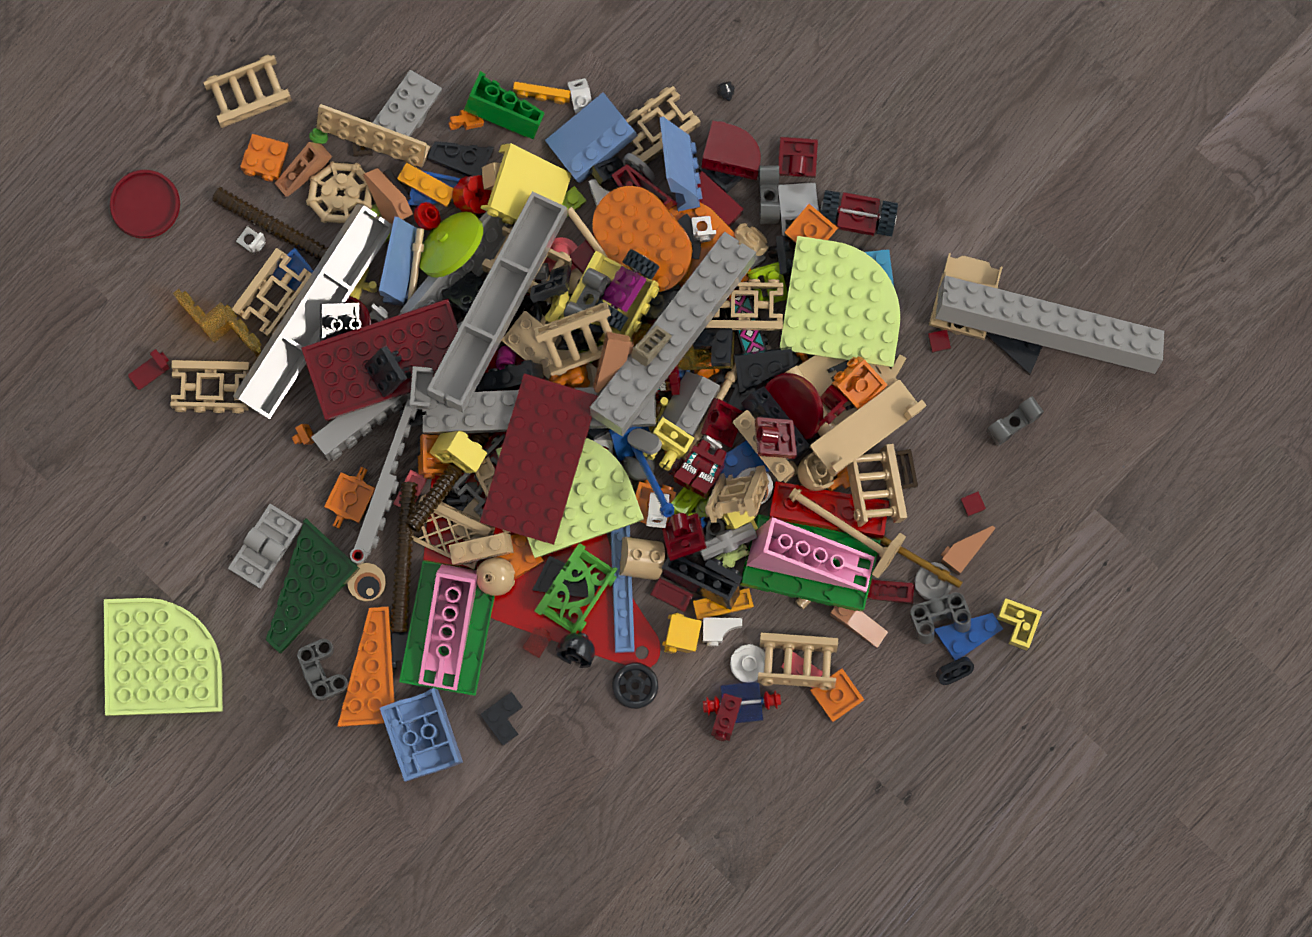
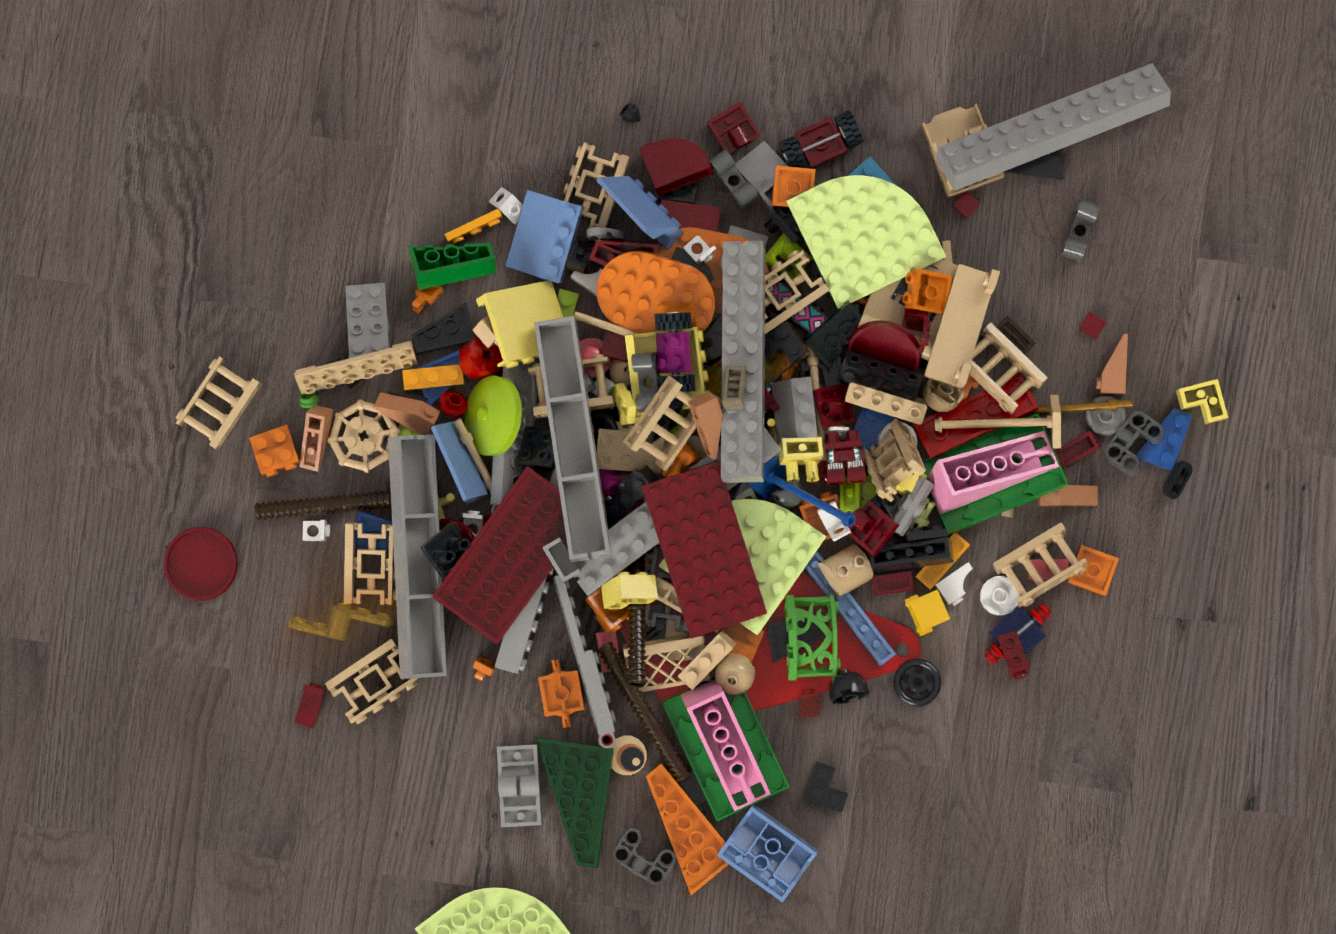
camera: 30 degrees left, 5 degrees up
(385, 370) = (522, 567): black plate -> none
(557, 285) = (613, 390): black plate -> none
(644, 441) = (781, 470): light grey tile -> none
(752, 238) = (745, 229): tan tile -> none
(775, 438) = (892, 390): dark red plate -> none

